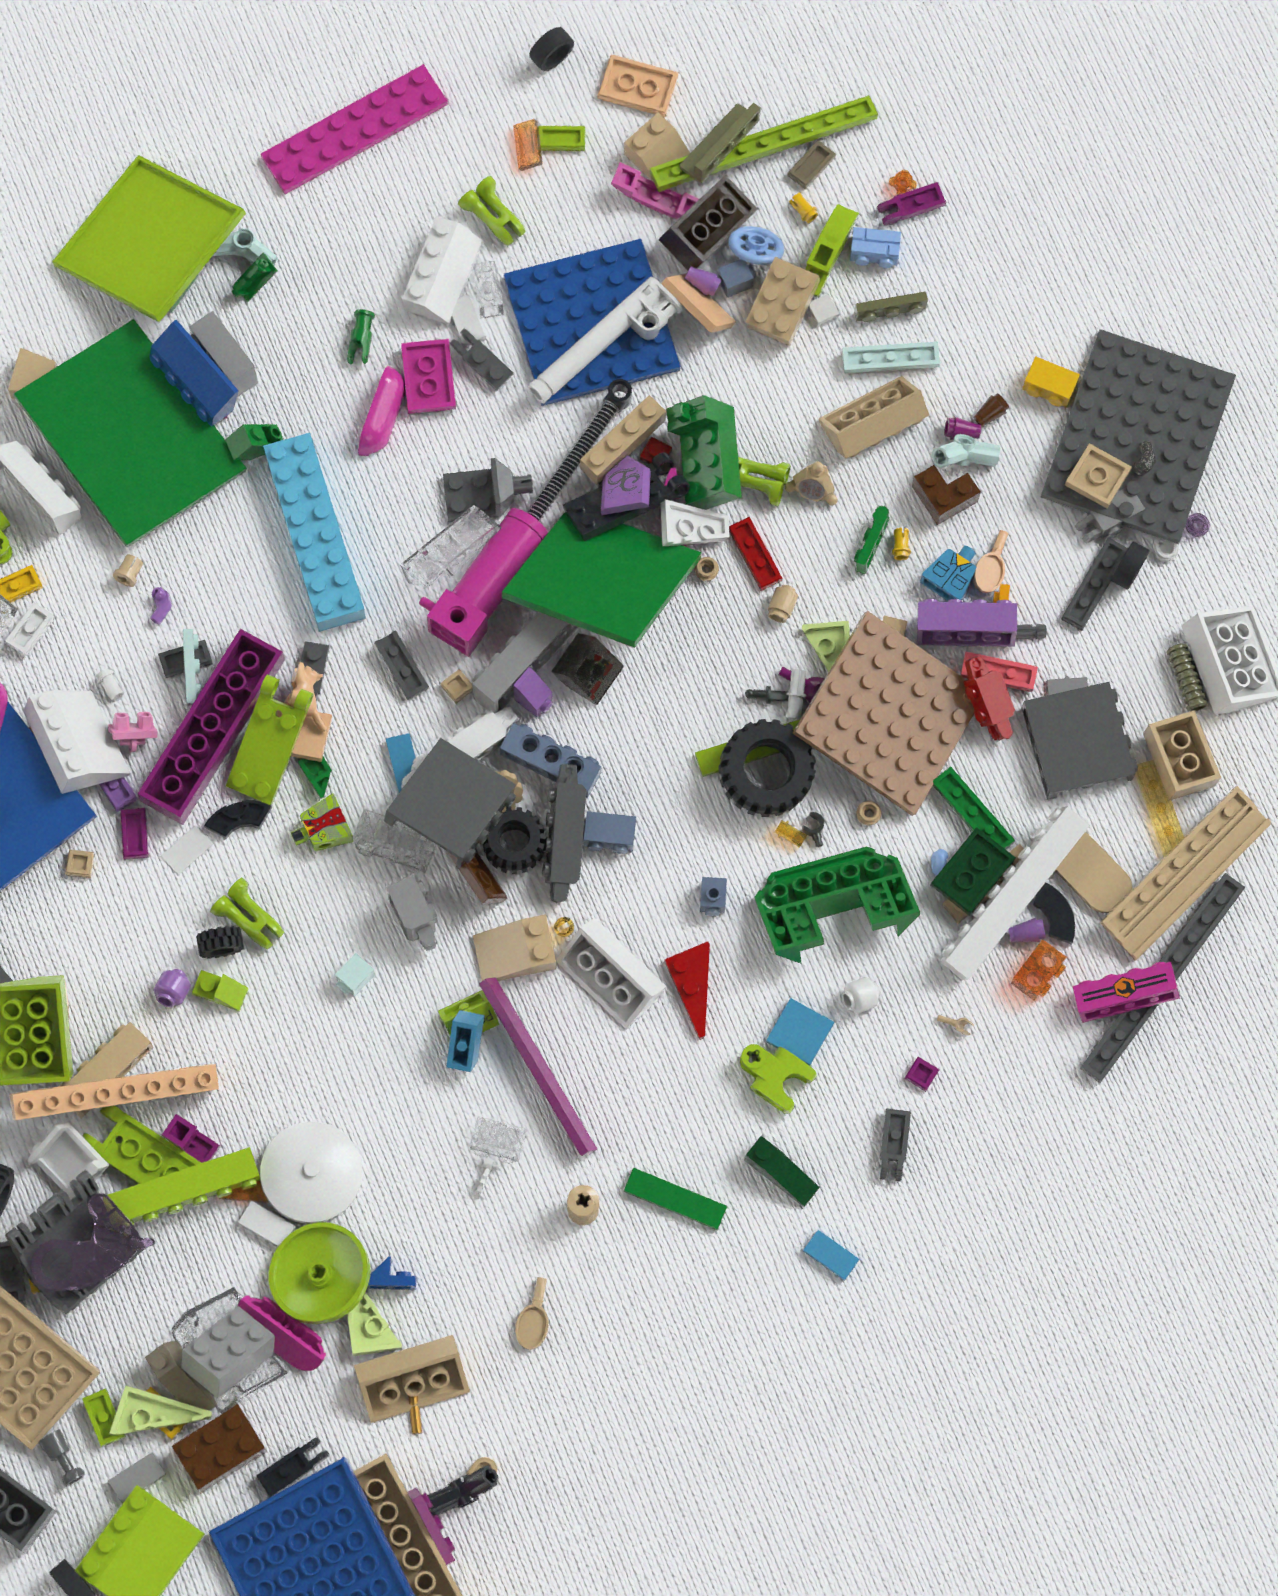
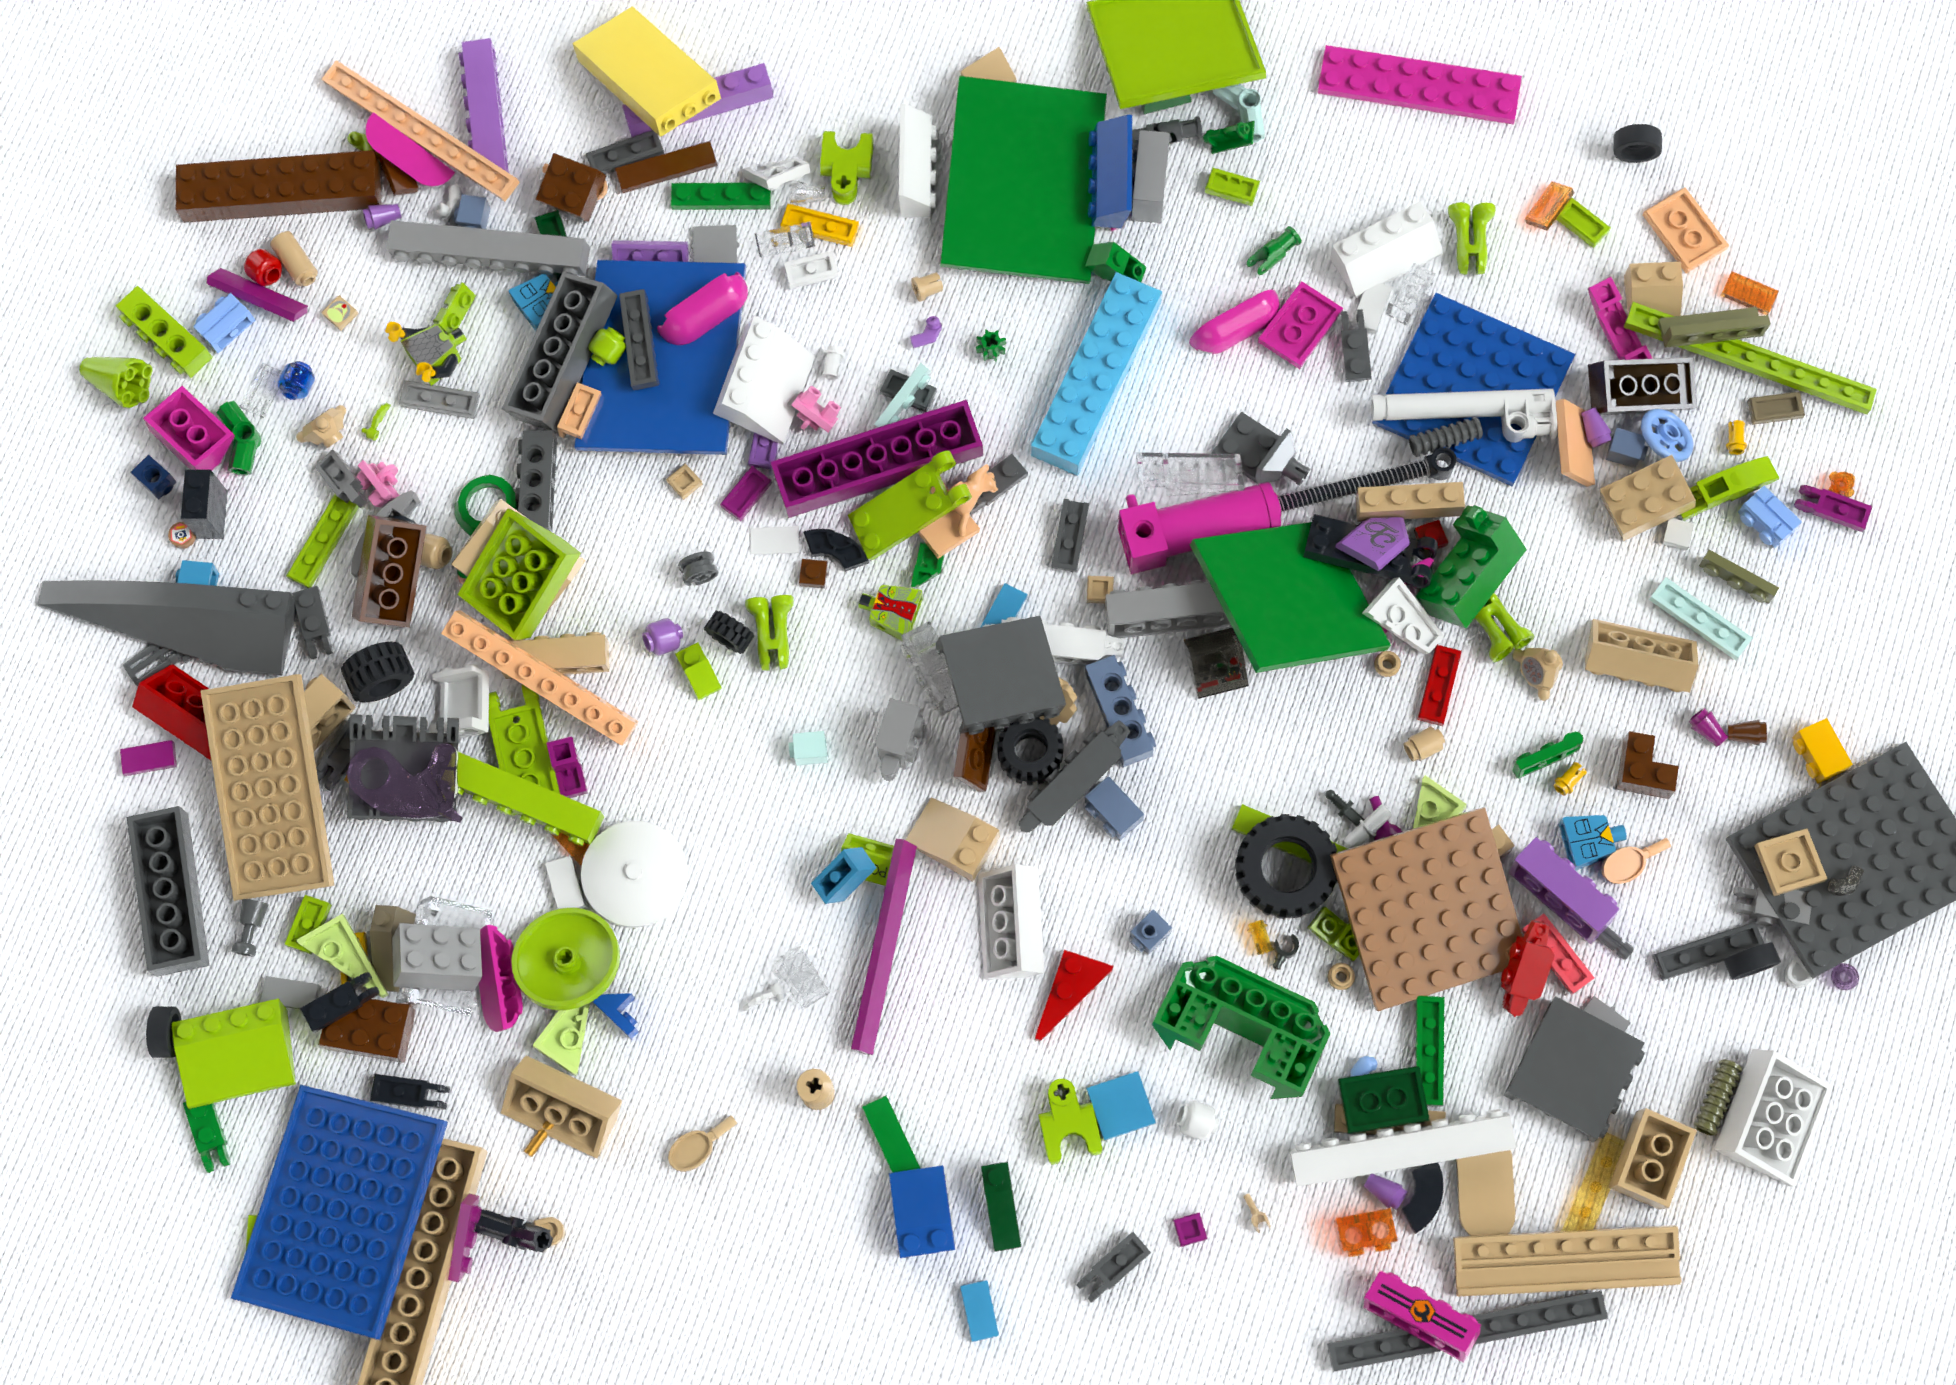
camera: 50 degrees right, 0 degrees up
(153, 916) = (698, 568): none -> dark grey wheel
(186, 1447) = (338, 1003): none -> black hinge
(207, 304) = (1176, 128): none -> dark grey piece
(210, 576) = (987, 340): none -> green gear
(239, 849) = (813, 573): none -> reddish brown plate
(287, 314) = (1232, 186): none -> lime plate
(532, 693) = (1152, 644): medium lavender slope -> none
(567, 931) = (1006, 859): clear yellow hinge -> none
(606, 372) = (1445, 436): none -> dark grey piece
(722, 96) = (1749, 293): none -> clear orange tile
(732, 1223) = (921, 1211): none -> blue slope
(838, 786) = (1334, 933): none -> lime slope
(966, 451) = (1692, 747): light aqua piece -> none
(1002, 594) = (1618, 892): light orange plate -> none

